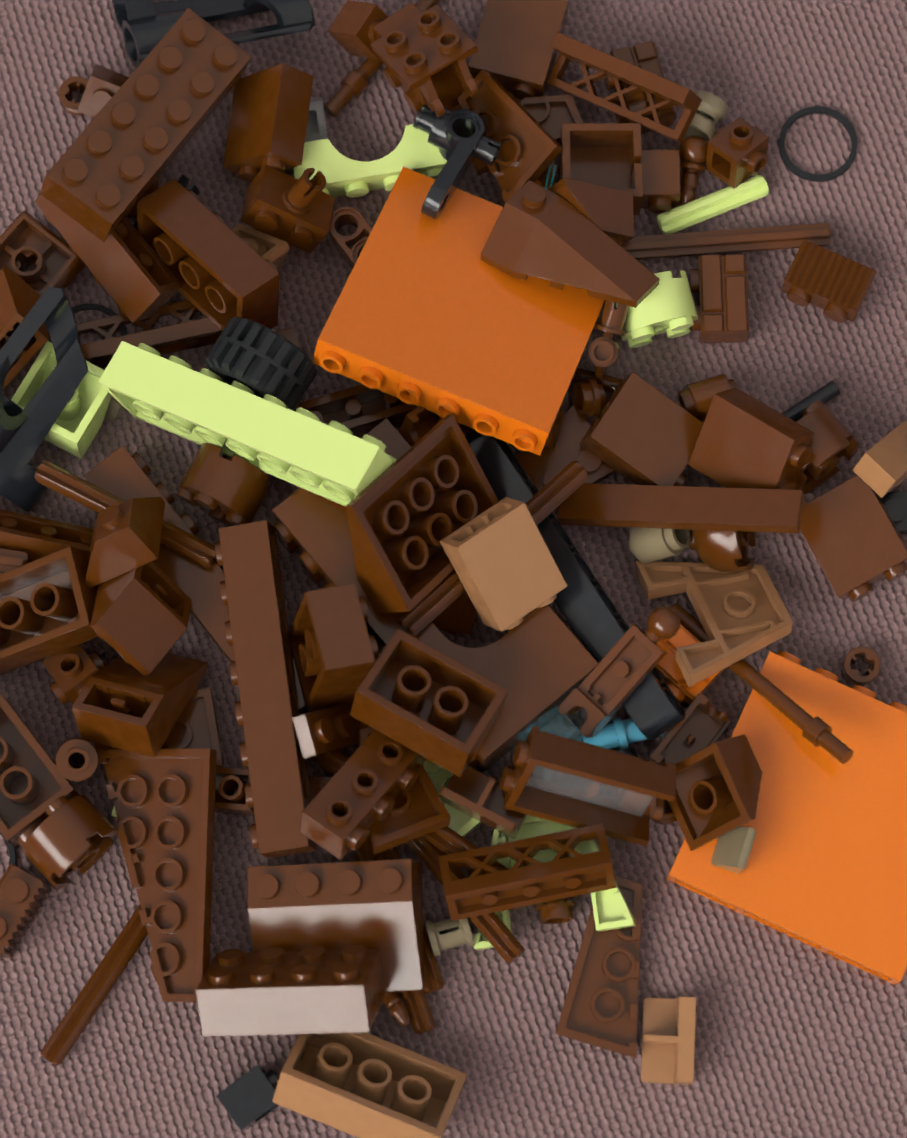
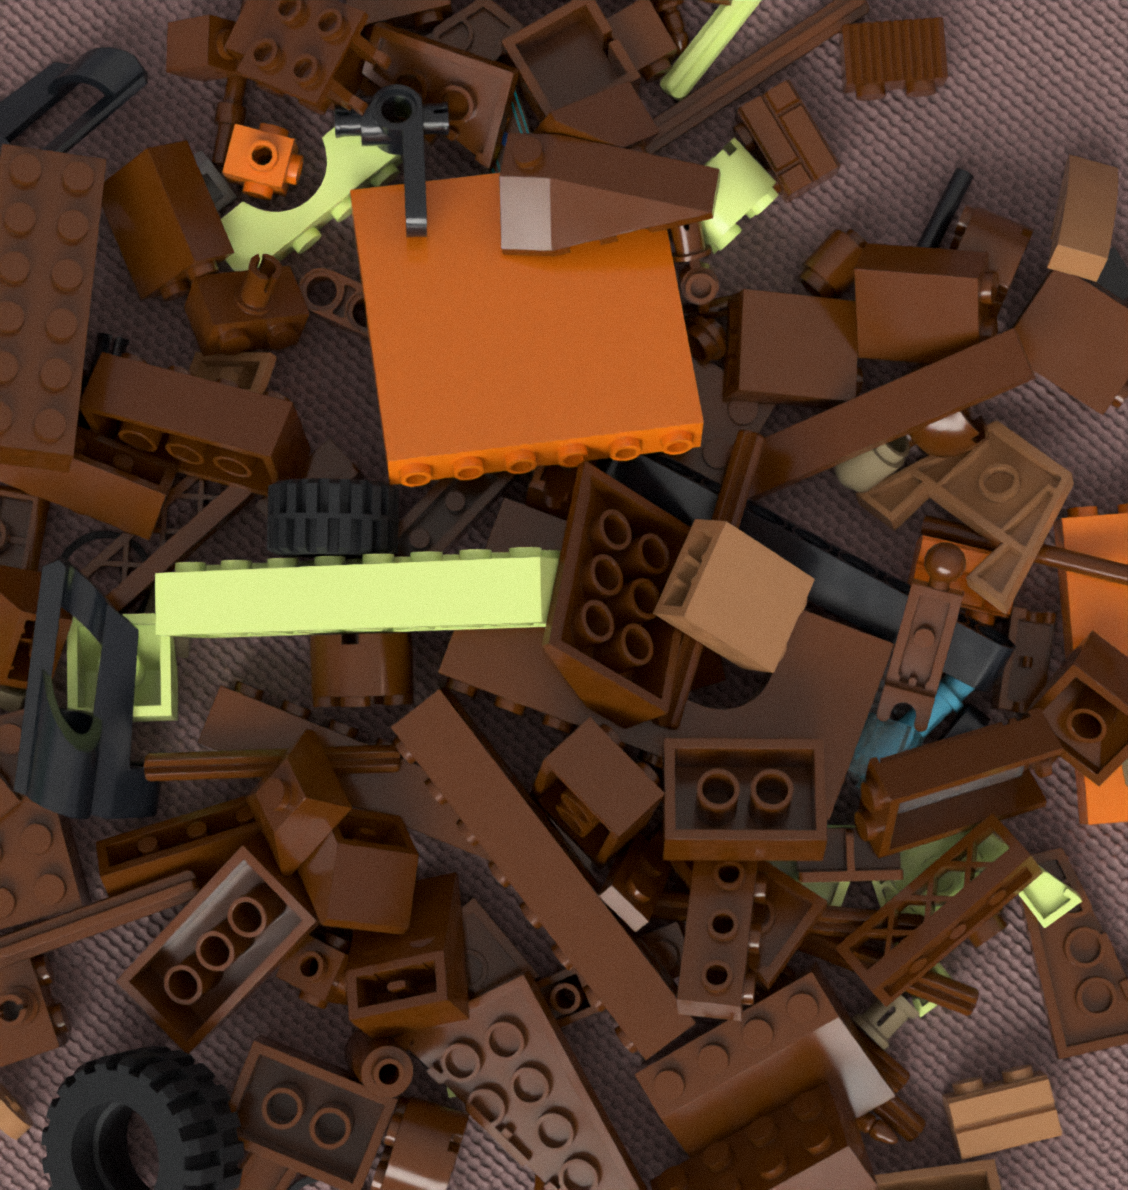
camera: 35 degrees left, 10 degrees up
(357, 121) = (250, 148): none -> orange brick
(492, 1048) = (1001, 1112): none -> medium nougat brick

